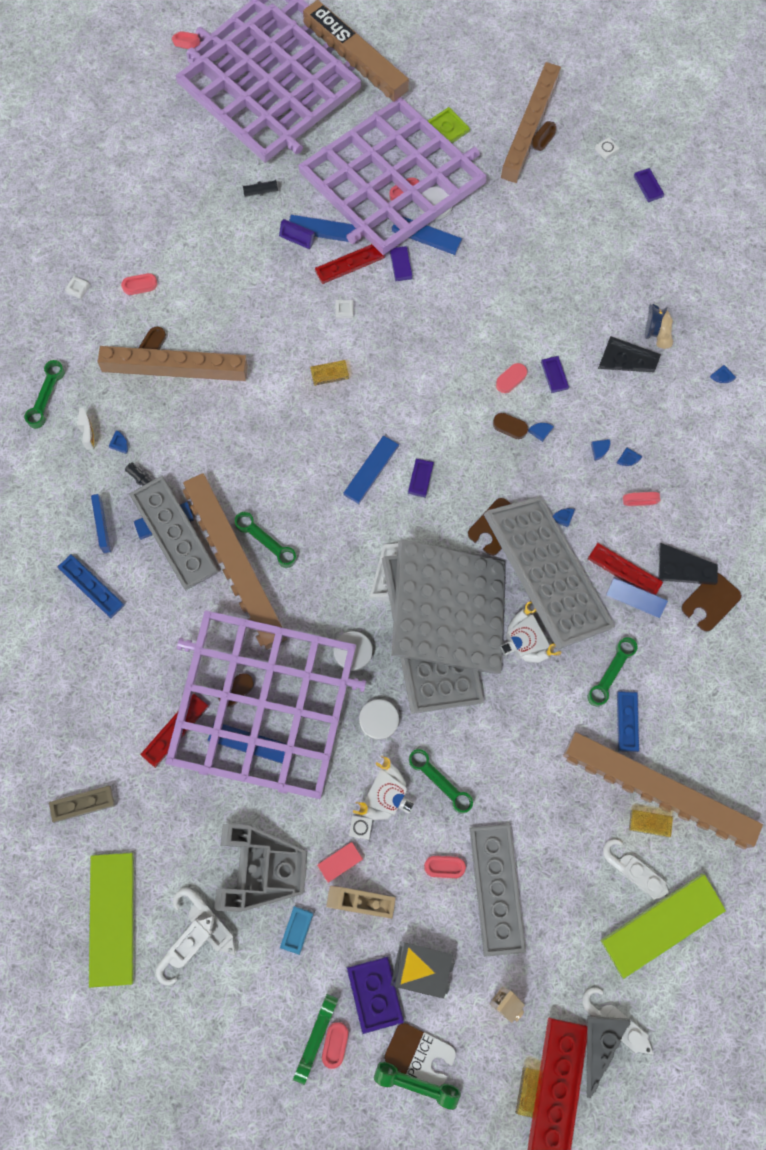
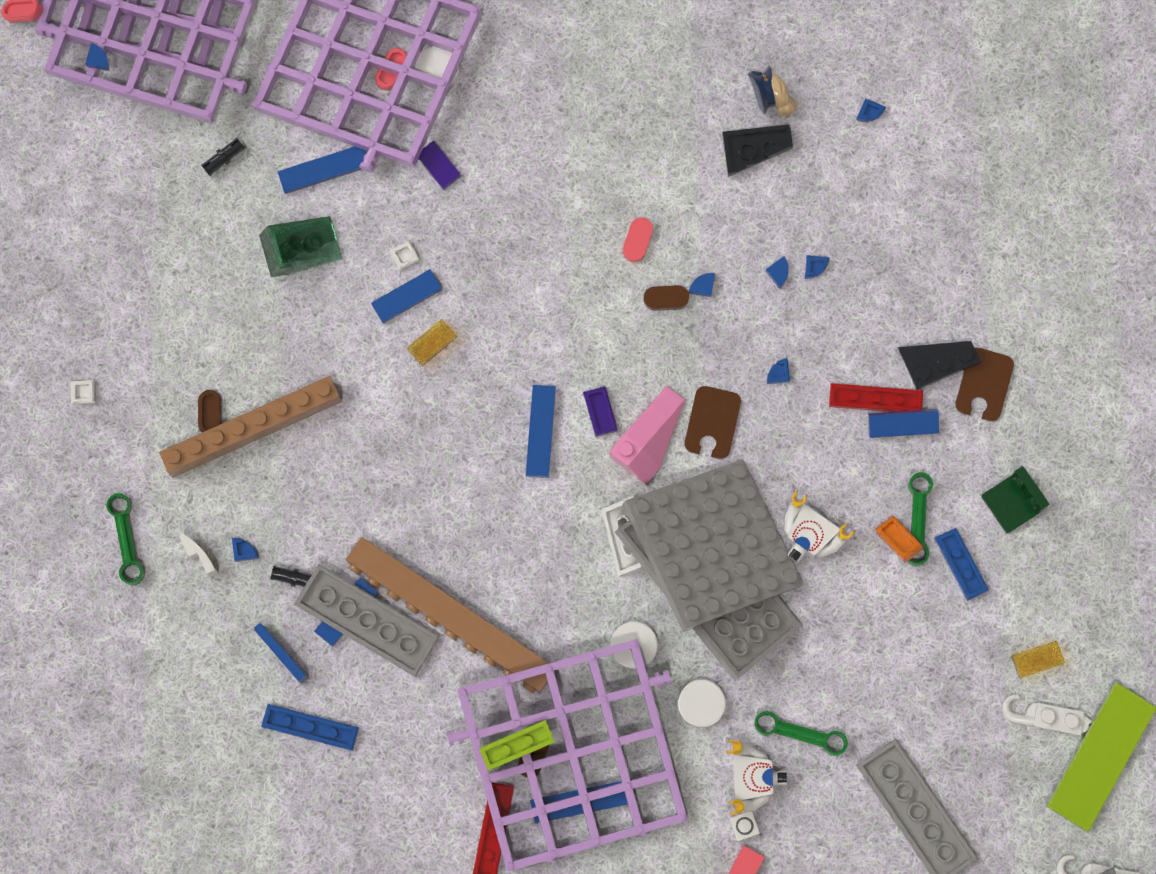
camera: 20 degrees left, 5 degrees up
(139, 284) = (151, 350): coral tile -> none
(212, 83) = (97, 58): none -> blue tile
(223, 673) = (516, 745): none -> lime plate
(265, 539) = (470, 573): green piece -> none
(277, 266) = (299, 245): none -> clear green slope
(296, 234) = (299, 193): dark purple tile -> none
(330, 335) = (406, 296): none -> blue tile
(348, 263) = (377, 197): red tile -> none
(434, 238) = (456, 112): blue tile -> none
(442, 513) = (647, 440): none -> bright pink wedge
(444, 867) = (852, 818): coral tile -> none
(549, 572) = (796, 446): light grey plate -> none
(554, 374) = (683, 209): dark purple tile -> none
(590, 678) = (899, 539): none -> orange tile
(641, 499) = (853, 308): coral tile -> none
(663, 790) = (1031, 618): medium nougat brick -> none
(693, 696) = (1015, 500): none -> dark green bracket

